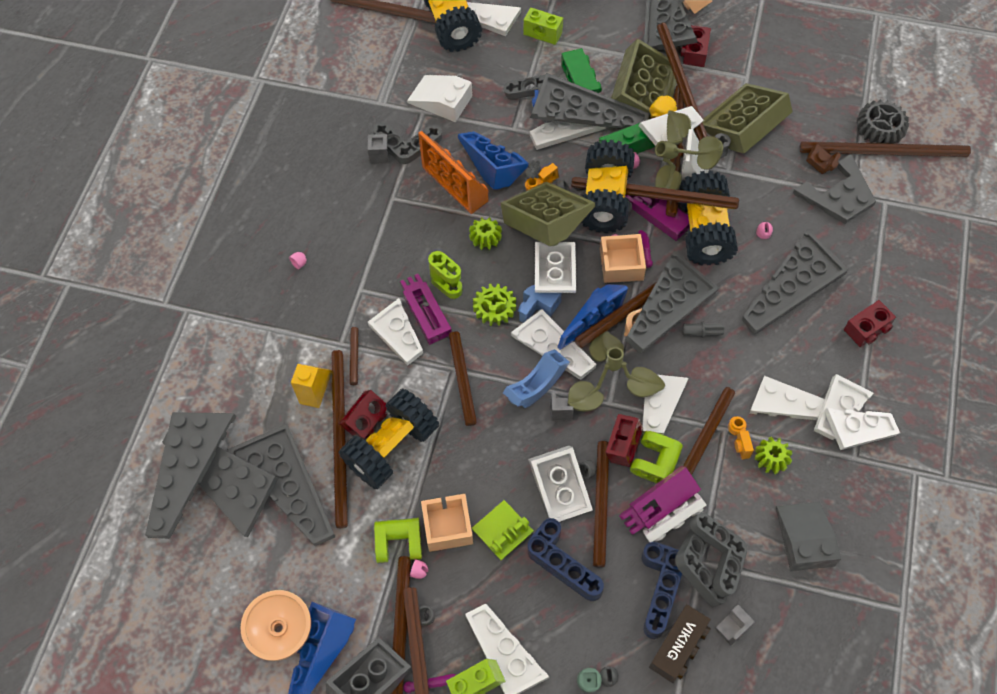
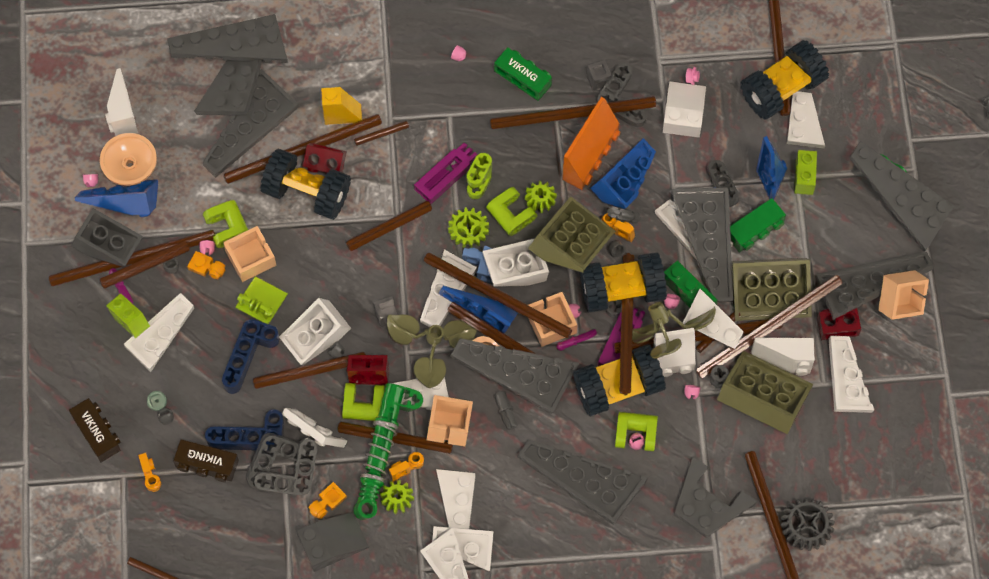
camera: 70 degrees right, 5 degrees up
(214, 614) = (120, 114): none -> white slope
(279, 680) = (90, 180): none -> bright pink hinge
(347, 210) = (523, 73): none -> green brick
(396, 331) = (414, 158): white wing -> none
(406, 186) = (570, 113): none -> reddish brown axle
(411, 79) = (692, 75): none -> bright pink plate
(435, 582) = (202, 264): none -> light orange plate
(492, 270) = (499, 210): none -> lime connector
(536, 40) = (770, 168): none -> blue wedge
(538, 381) = (400, 285): medium blue arch -> none
(583, 294) = (498, 295): none -> reddish brown axle
(662, 106) = (737, 309): yellow head -> none
(668, 495) = (327, 416): magenta hinge -> none
(695, 438) = (386, 425): none -> green piece
(707, 377) = (449, 420): none -> light nougat piece
(720, 83) = (789, 354): none -> white slope
(728, 171) = (691, 390): none -> bright pink hinge
(735, 625) = (235, 501): flat silver panel -> none
(746, 56) = (847, 381): none -> white wing
(754, 214) = (639, 423): none -> lime connector
(758, 522) = (330, 497): none -> light orange plate
(822, 160) = (738, 474): reddish brown bracket -> none
(867, 320) = (565, 550): dark red brick -> none

